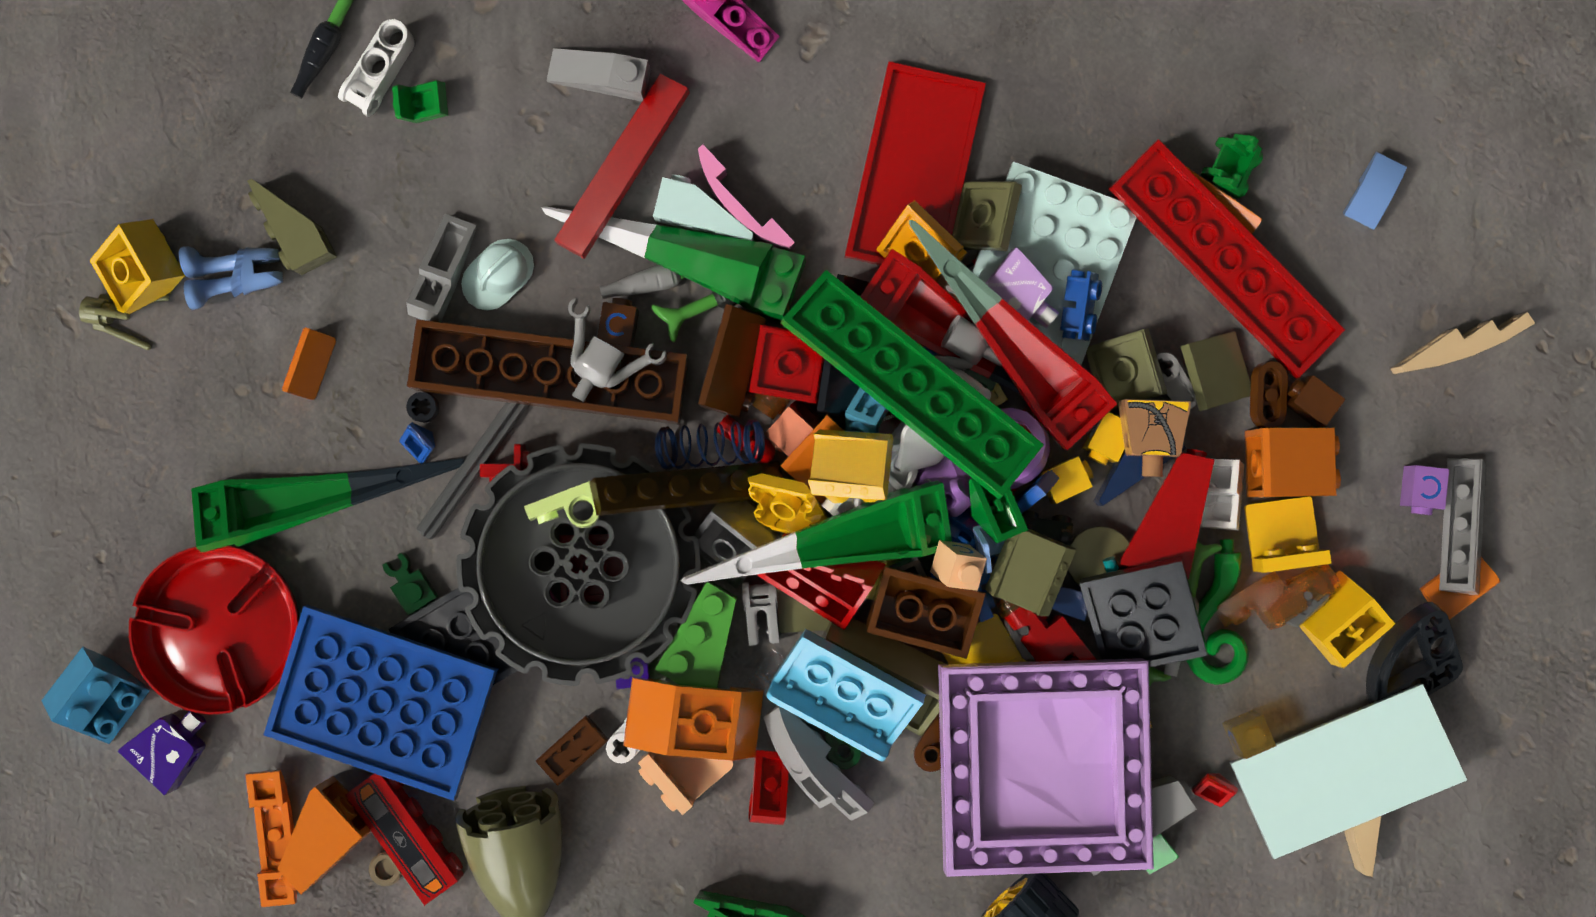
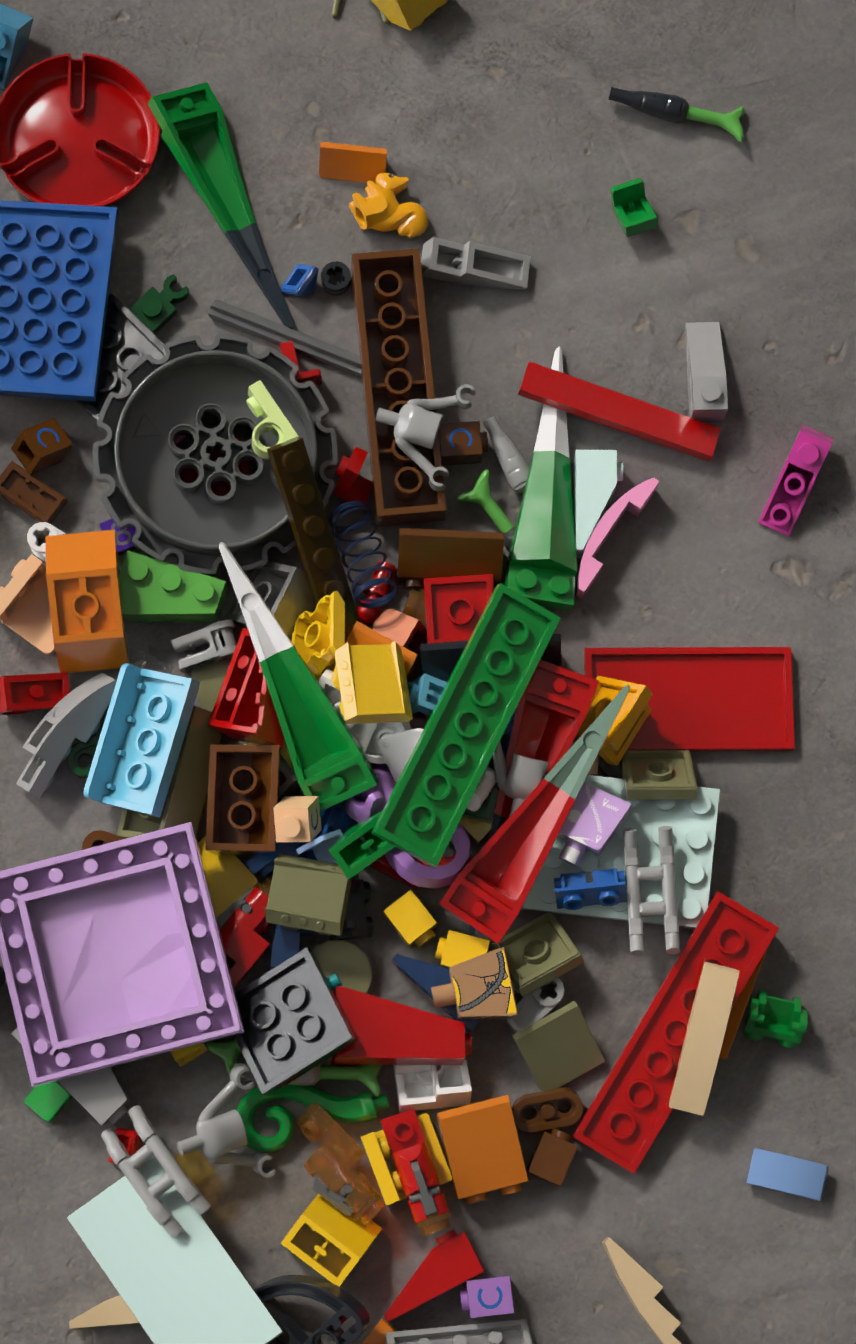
camera: 75 degrees right, 10 degrees down
(242, 280) = (421, 84): medium blue piece -> none
(300, 238) = (475, 124): olive slope -> none
(367, 345) = (382, 210): none -> light orange animal
(371, 84) = (638, 163): white piece -> none
(497, 274) = (484, 320): light aqua piece -> none
(528, 729) = (41, 446): none -> reddish brown brick
(635, 439) = (350, 484): none -> red bracket
(1036, 491) = (387, 883): blue tile -> none
(1115, 237) = (639, 909): none -> light grey piece
(1231, 698) = (225, 1132): none -> light grey piece
(1246, 233) = (704, 1038): none -> tan slope
(1260, 752) = (174, 1174): none -> light grey piece
(1303, 528) = (416, 1172): none -> red plate
(1391, 524) = (441, 1270): none -> red slope

